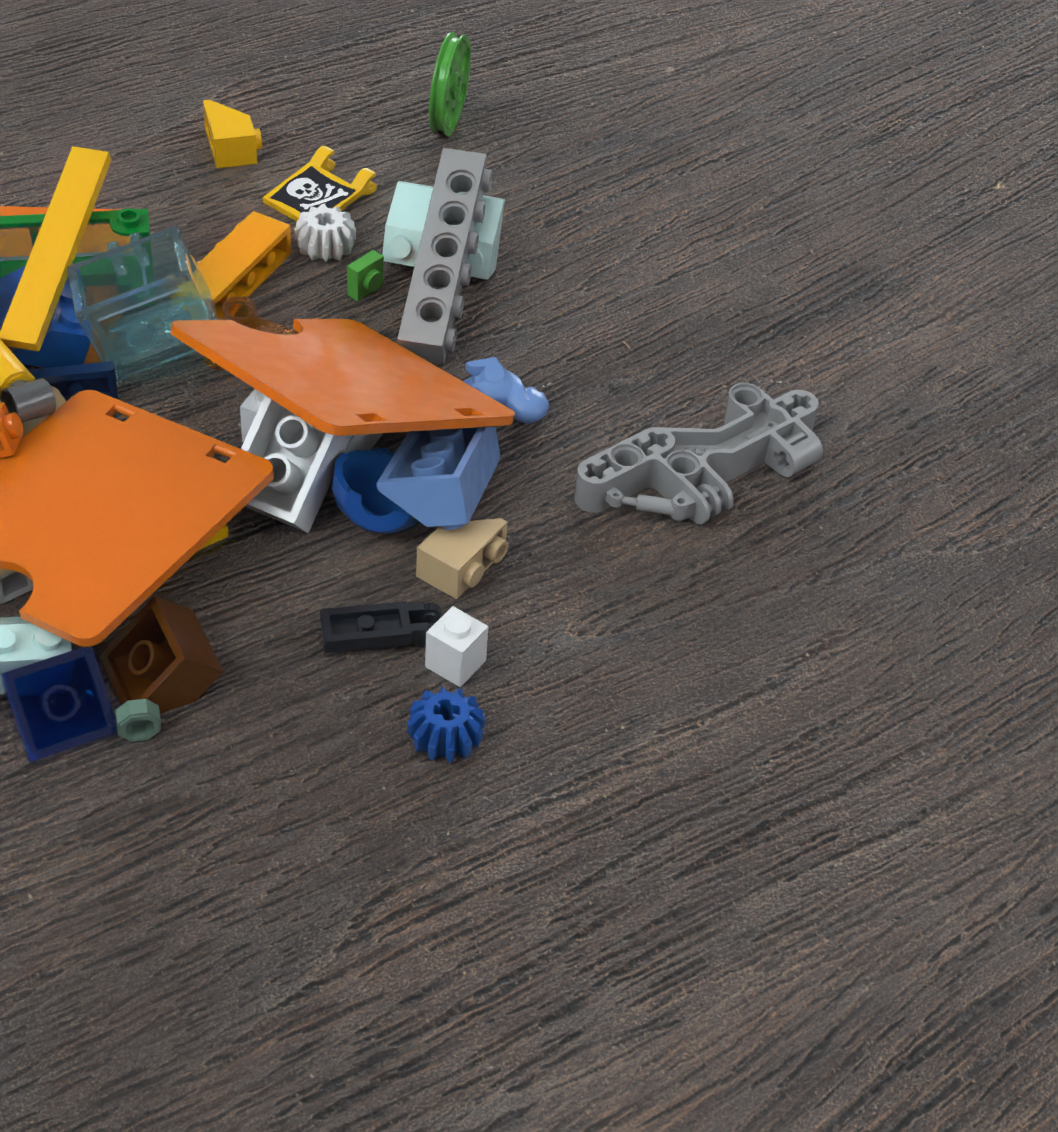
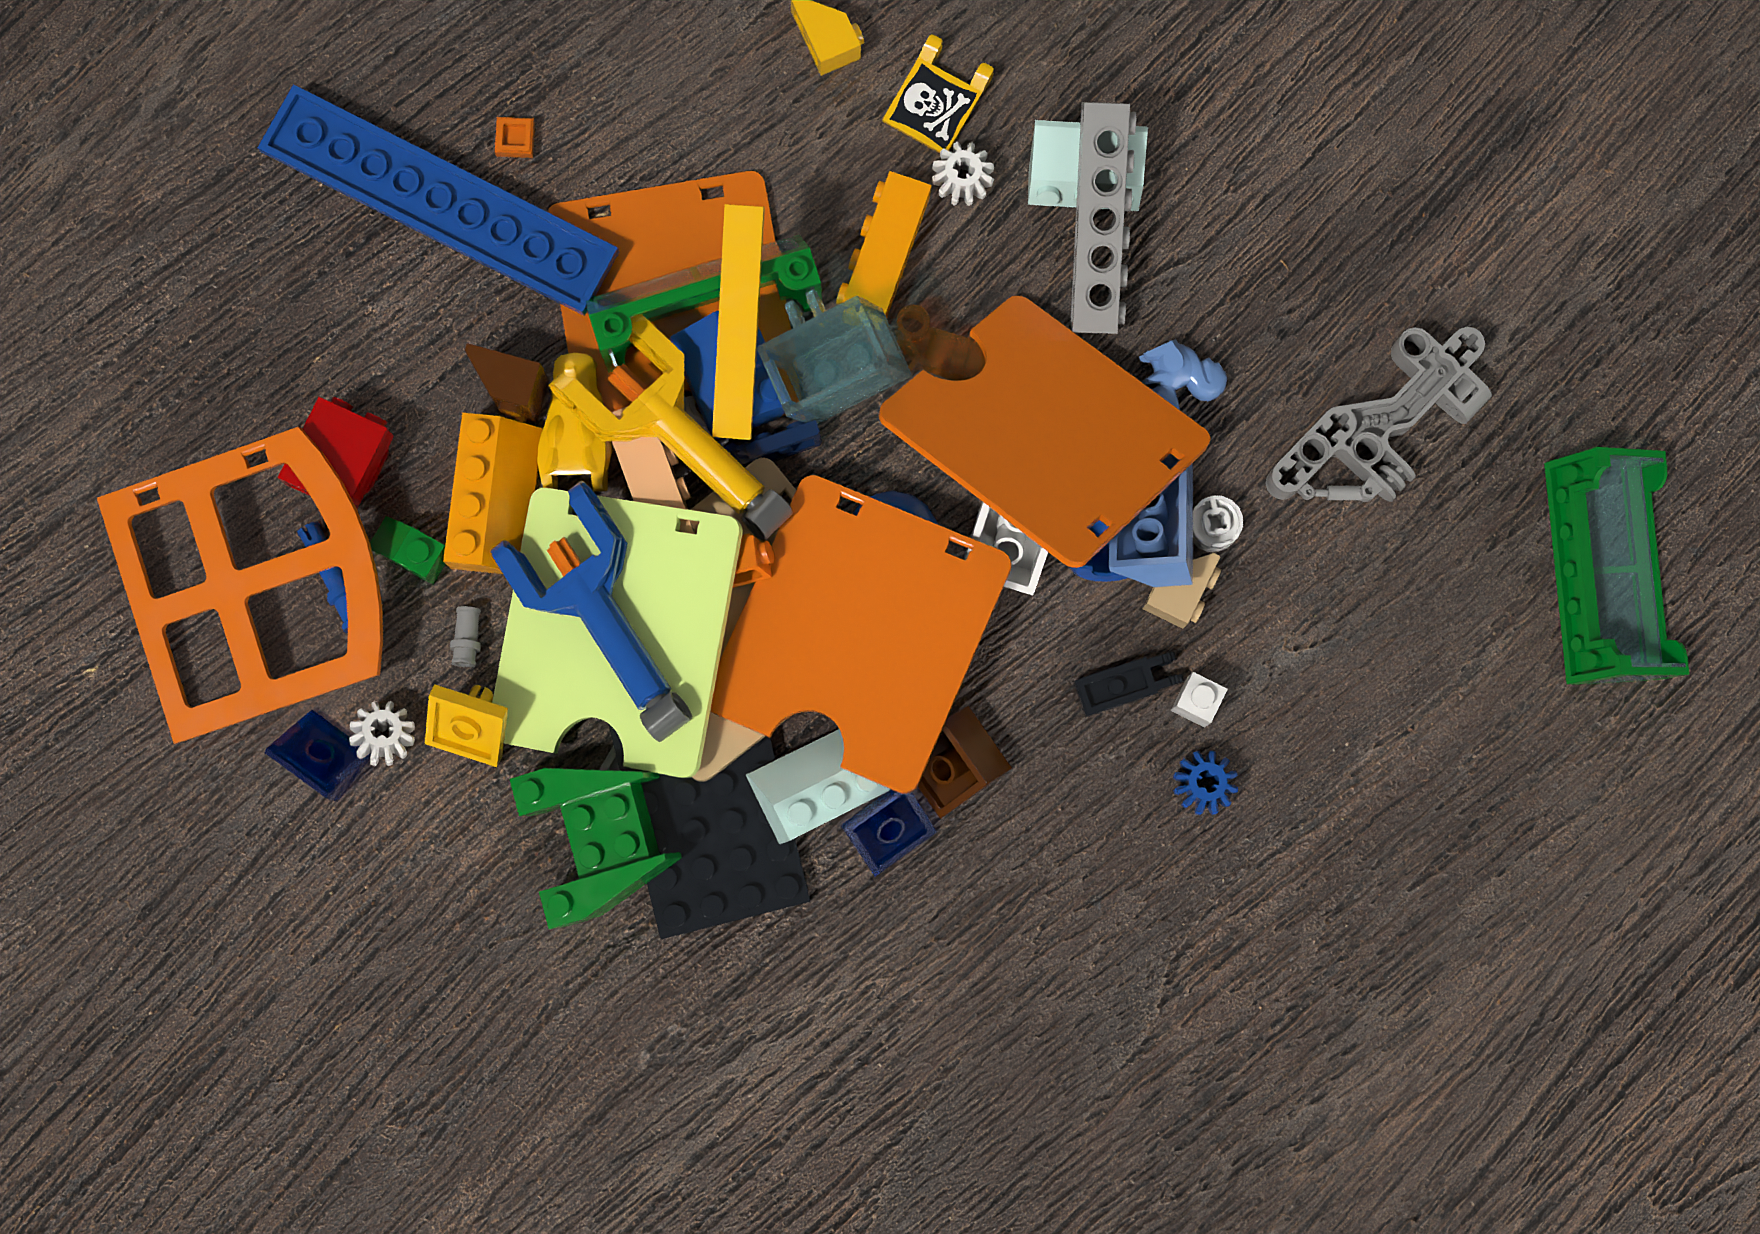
camera: 10 degrees left, 35 degrees up
(138, 720) = (953, 825): sand green tile -> none
(365, 275) = (1019, 231): bright green plate -> none
(515, 503) = (1216, 523): none -> white wheel
(942, 606) = (1610, 566): none -> windscreen

